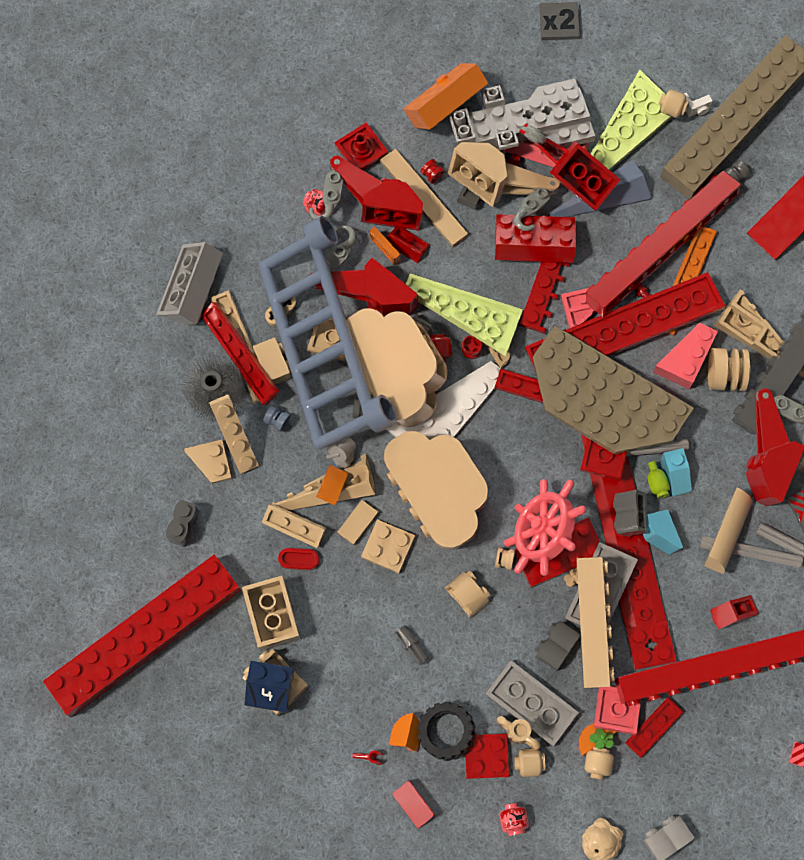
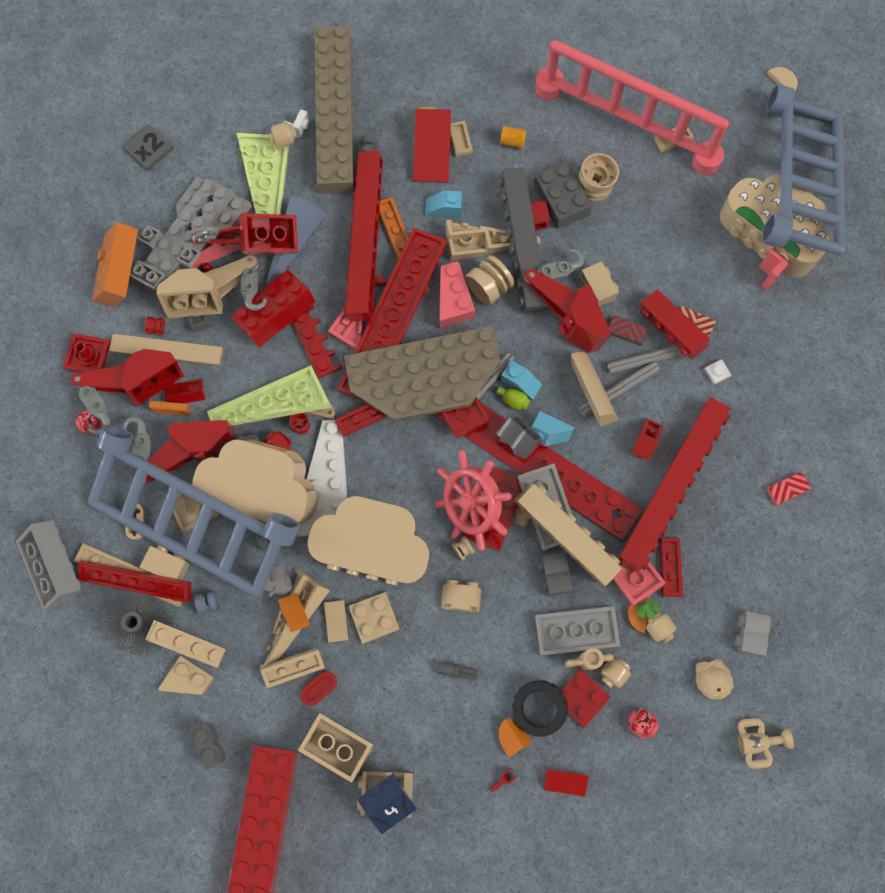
camera: 45 degrees left, 0 degrees up
(753, 275) = (444, 204): none -> medium azure slope

